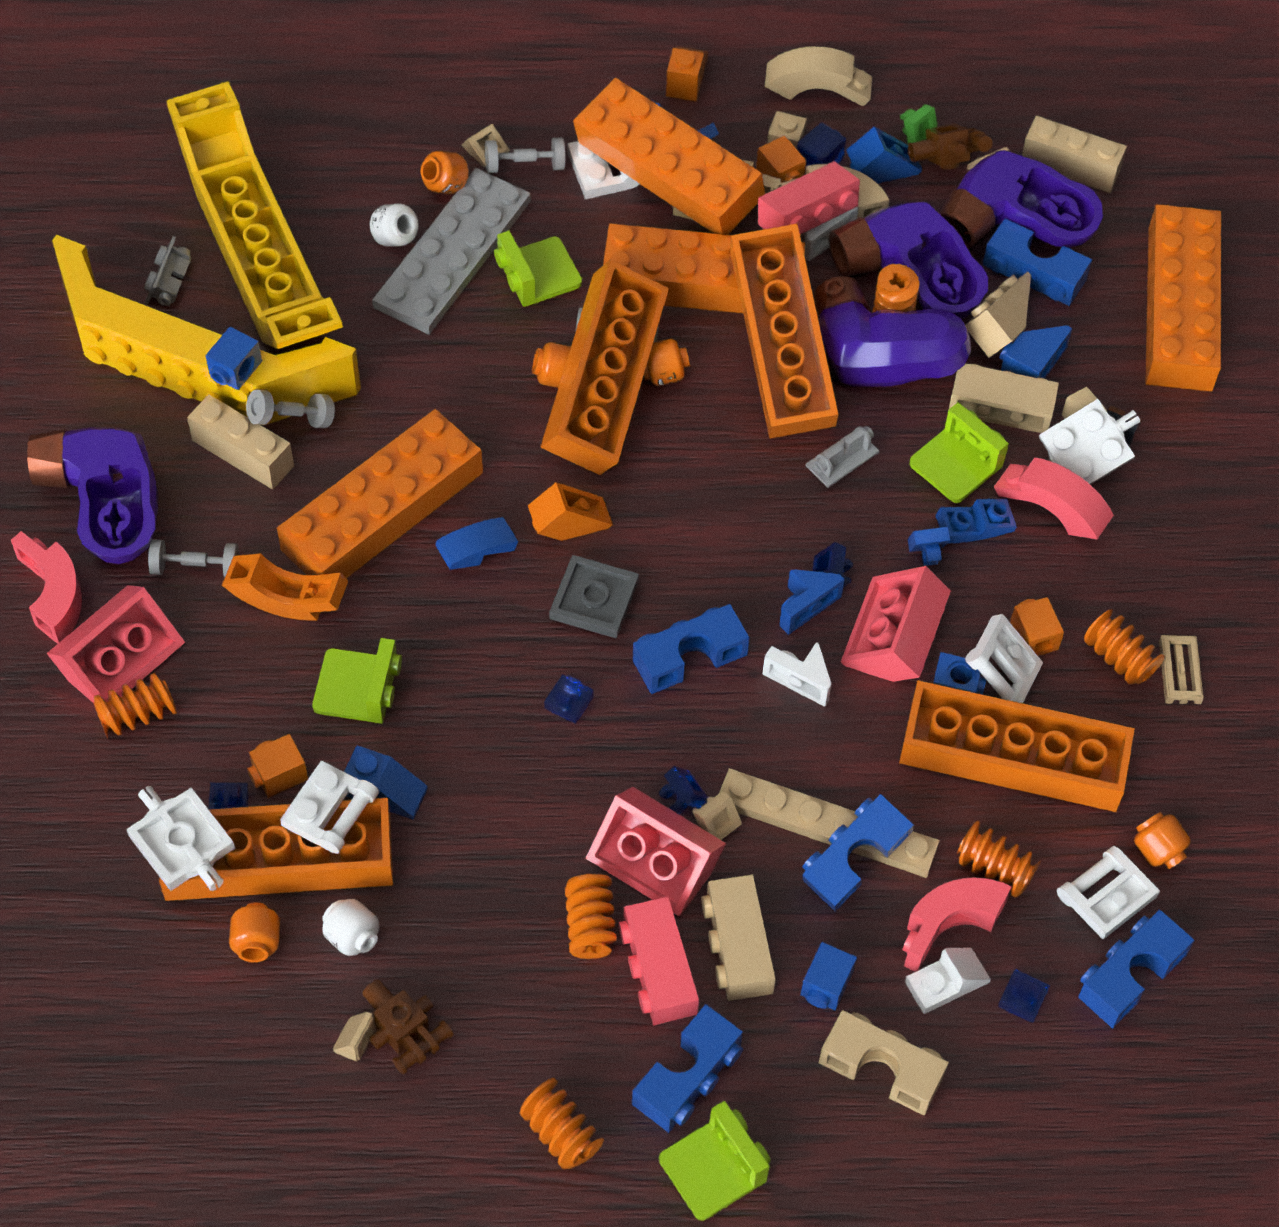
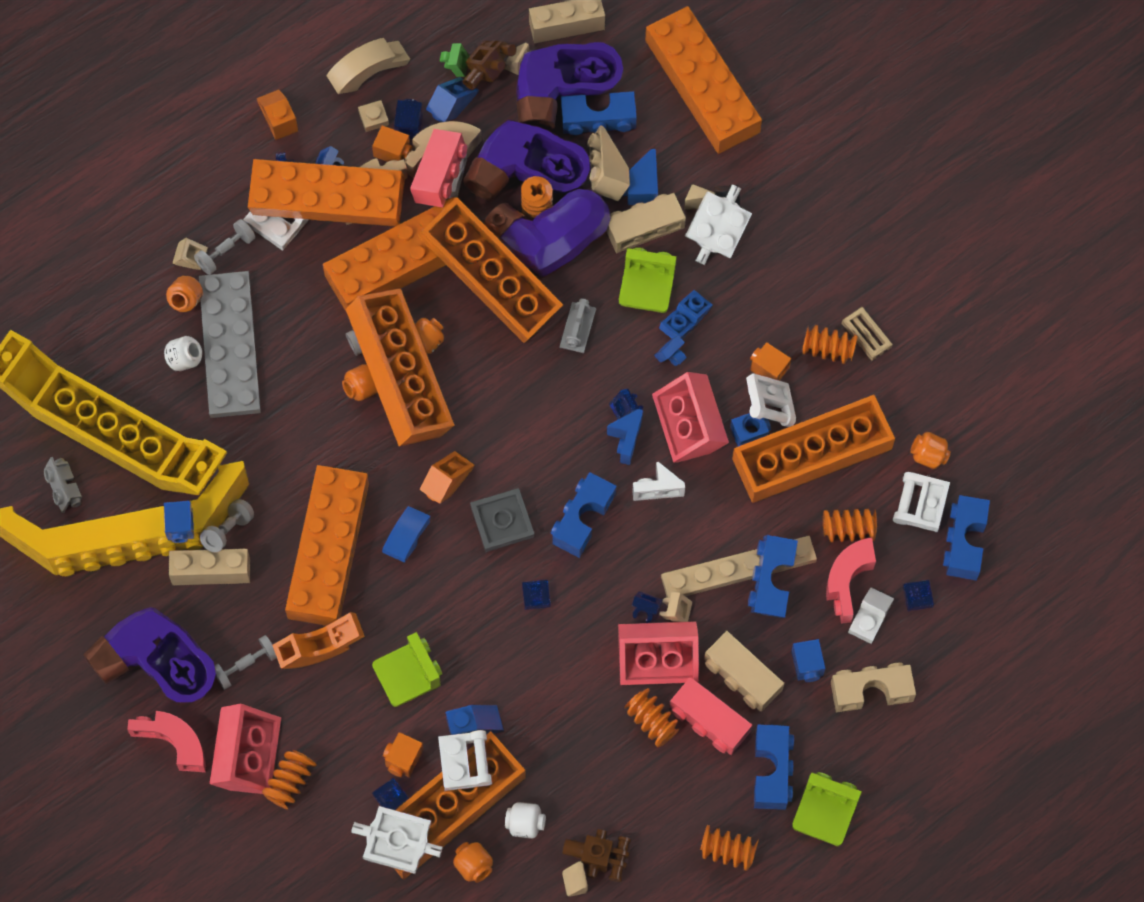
camera: 35 degrees left, 10 degrees up
(536, 269) = (296, 322): lime bracket -> none
(1060, 492) = (722, 266): coral arch -> none

